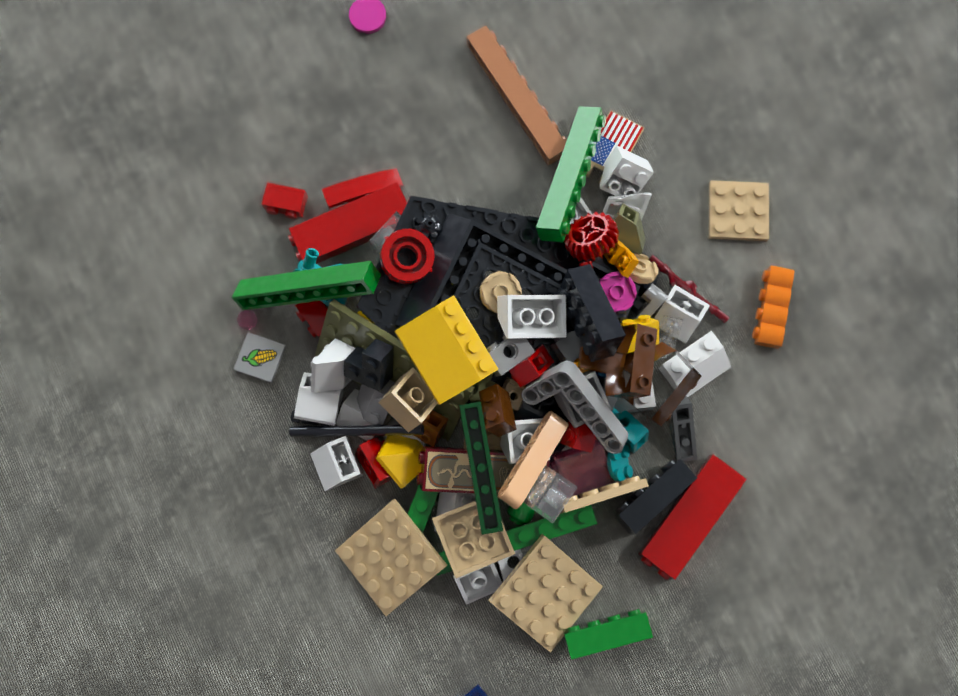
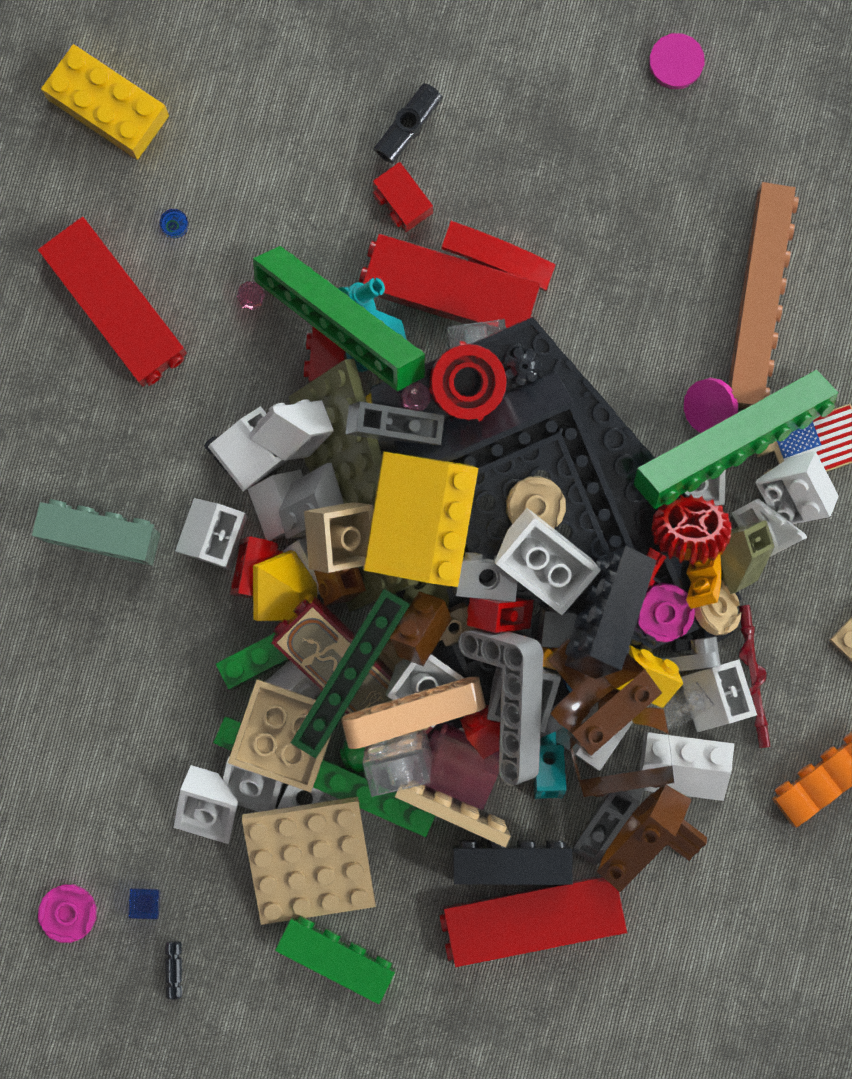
camera: 40 degrees right, 5 degrees up
(77, 284) = (105, 102): none -> yellow brick
(171, 317) = (174, 223): none -> clear blue tile
(173, 387) = (113, 302): none -> red brick
(255, 170) = (418, 110): none -> black piece
(260, 357) = (229, 348): light grey tile -> none
(272, 519) = (97, 534): none -> sand green brick
(359, 430) = (256, 513): black piece -> none
(371, 366) = (330, 464): black brick -> none
(385, 289) = (415, 397): none -> clear pink tile
(386, 313) = (394, 424): none -> dark grey slope
(390, 557) = (182, 681): tan plate -> none
(463, 614) = (206, 806): none -> white slope
(540, 169) = (709, 403): none -> dark pink tile
(619, 465) = (505, 799): teal piece -> none
(711, 417) = (649, 829): none -> reddish brown piece

